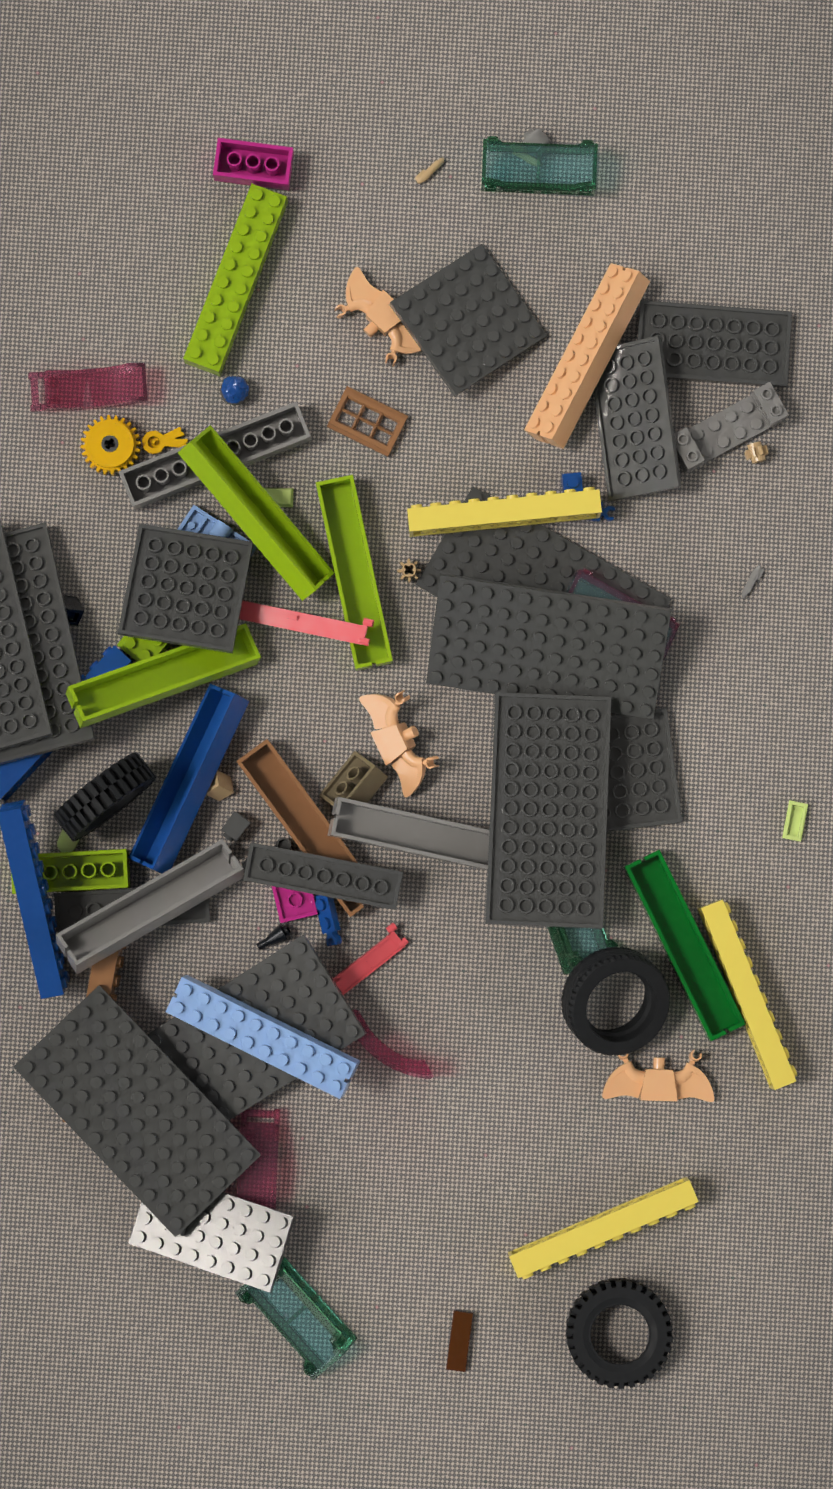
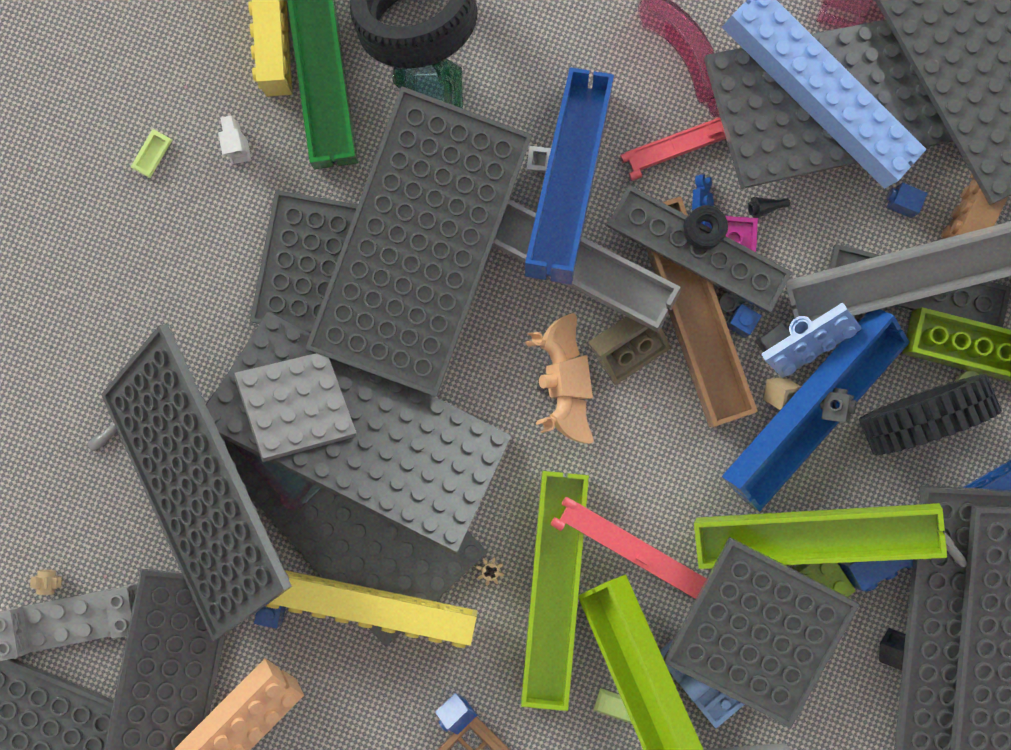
camera: 165 degrees left, 0 degrees up
(57, 697) = (954, 552): none -> light grey piece
(162, 977) = (906, 200): none -> blue brick
(174, 784) = (846, 408): none -> dark grey brick
(211, 831) = (811, 339): none -> light blue plate
(267, 834) = (743, 320): none -> blue brick
(314, 886) = (708, 214): none -> black tyre
(401, 452) = (455, 714): none -> brick
(445, 902) = (569, 177): none -> blue piece
(472, 914) = (538, 159): none -> white brick
(602, 648) = (294, 406): none -> light grey plate
(661, 563) = (194, 486): none -> dark grey plate
(727, 848) = (233, 142): none -> white piece

